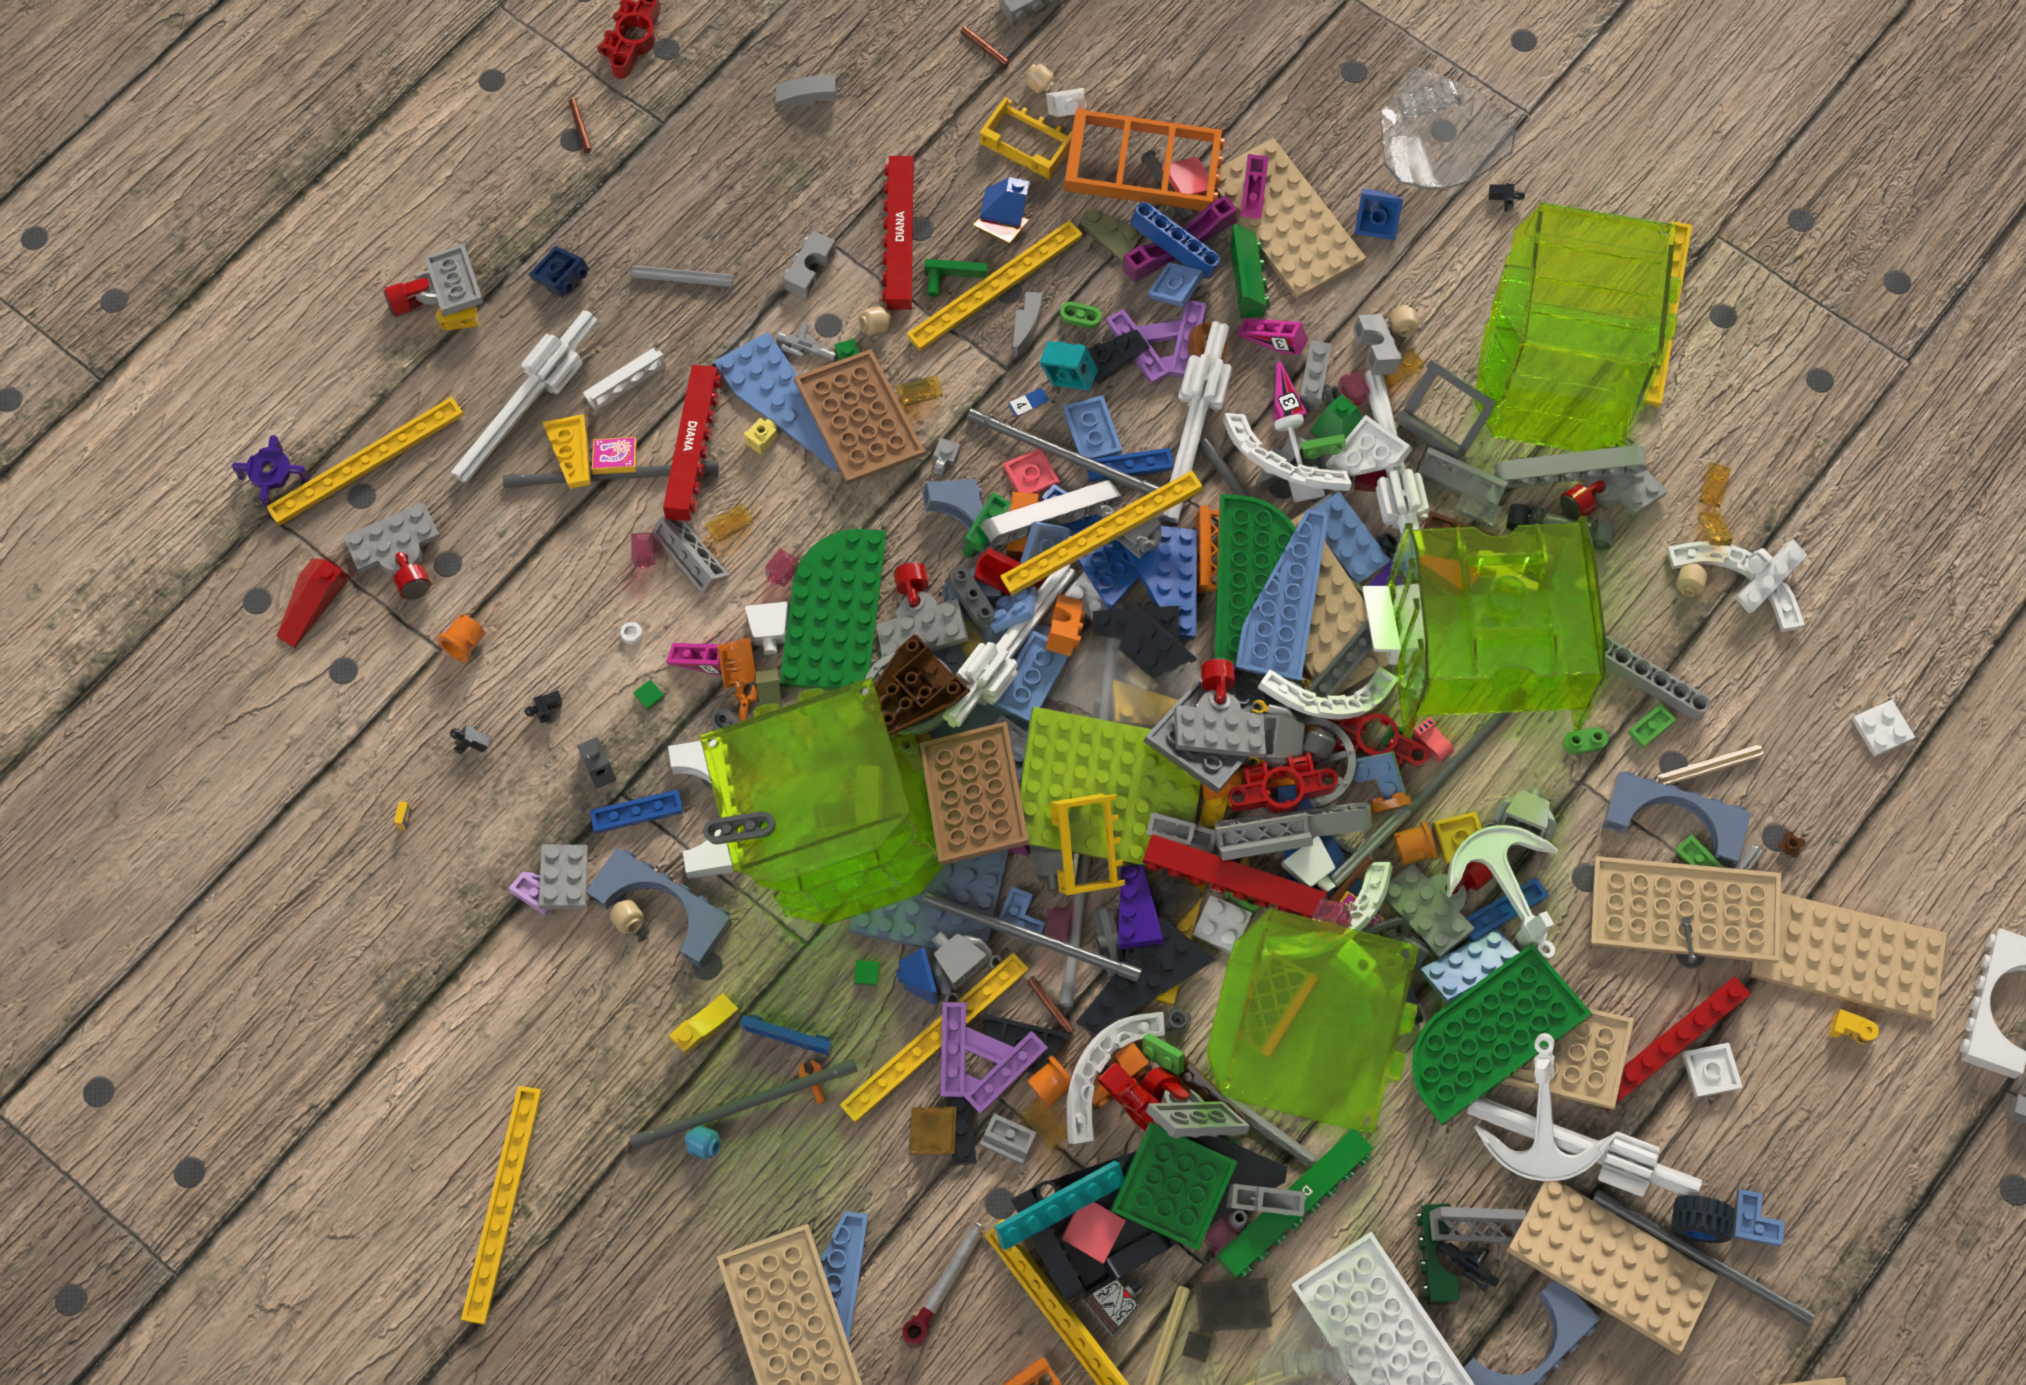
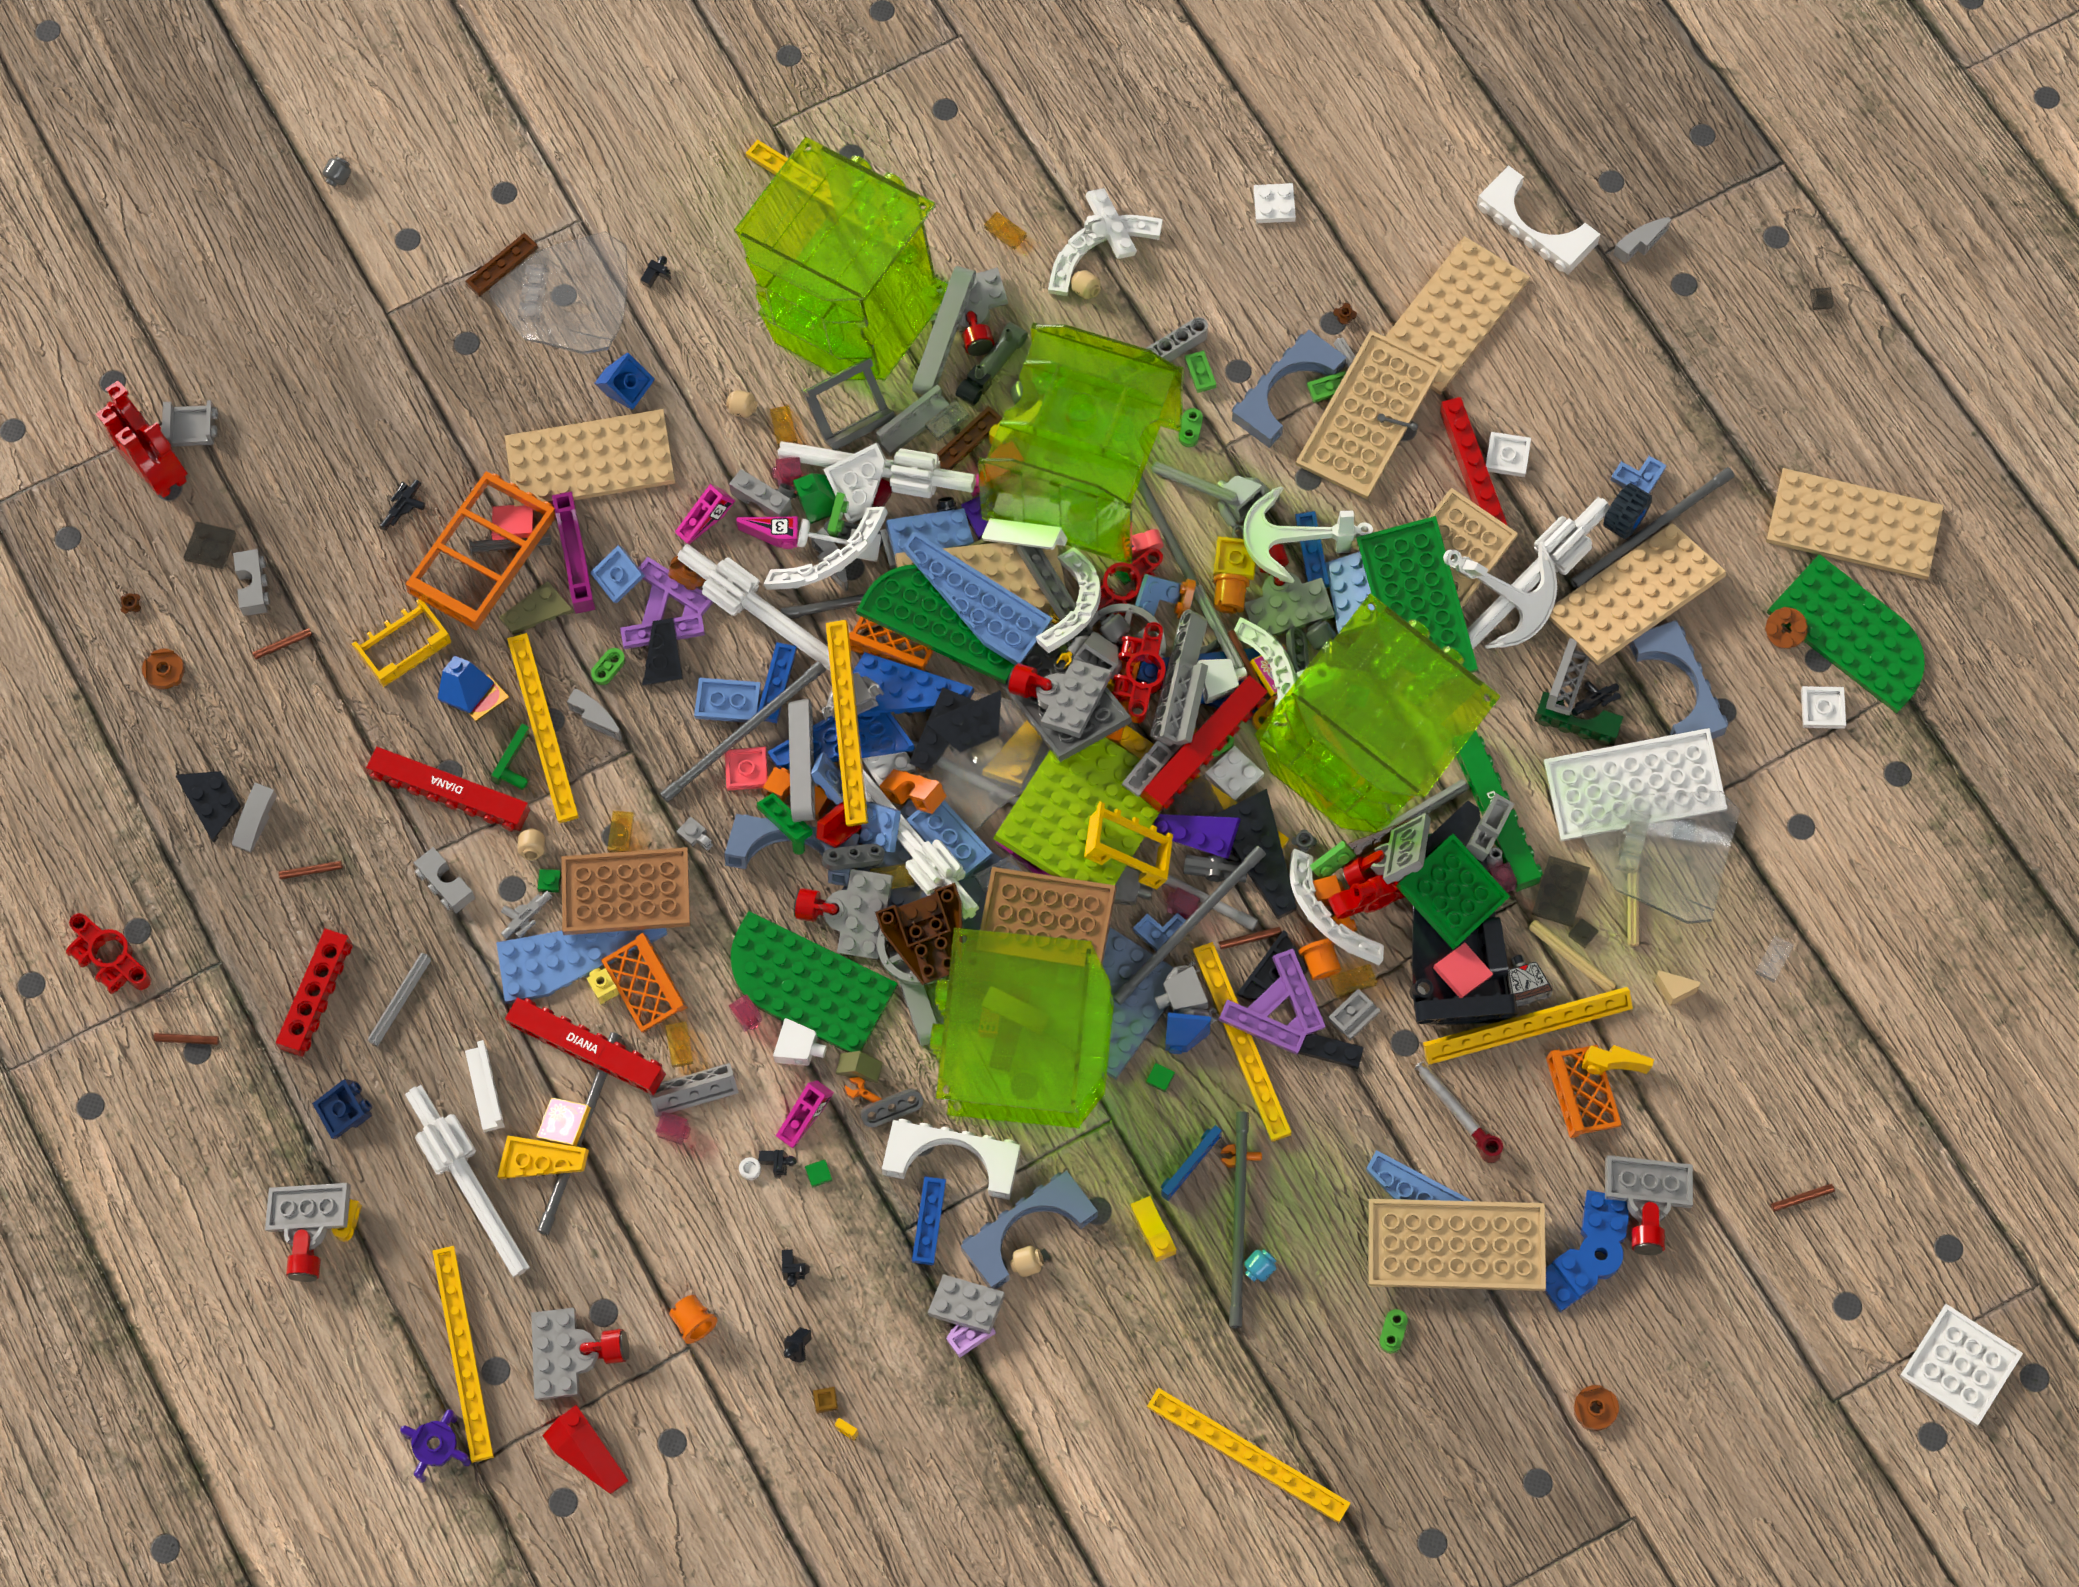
camera: 65 degrees left, 0 degrees up
(428, 787) = (825, 1400): none -> pearl gold tile
(595, 760) = (867, 1238): dark grey torso -> none
(644, 656) = (779, 1159): none -> black piece
(652, 198) = (329, 942): none -> red brick
(683, 1303) = (1393, 1330): none -> bright green plate
(729, 828) = (1040, 1079): dark grey plate -> none
(737, 663) = (829, 1081): orange hinge -> none
(777, 156) = (310, 870): none -> copper bar
(802, 464) = (659, 972): none -> orange fence
(811, 52) = (211, 799): none -> black wing
(933, 1130) = (1323, 1072): pearl gold piece -> none
(1028, 401) = (672, 744): sticker -> none
(1039, 78) = (344, 608): tan head -> none
(1059, 1205) = (1439, 982): teal plate -> none
(1066, 102) = (385, 593): white torso -> none
(1068, 365) = (661, 692): teal brick -> none
(1166, 86) = (404, 503): none -> black piece
(1174, 239) = (575, 555): blue beam -> none
(1248, 273) = (634, 511): green slope -> none
(1254, 186) = (551, 468): dark pink slope -> none
(1333, 913) = (1273, 678): clear pink brick -> none
(1383, 354) = (742, 431): light grey arch -> none
(1446, 65) = (501, 264): none -> reddish brown plate
(1521, 764) = (1194, 482): none -> axle
(1711, 765) = (1253, 343): tan axle -> none
(1715, 529) = (1048, 246): clear yellow plate -> none
(1853, 1026) = (1509, 340): yellow leg -> none

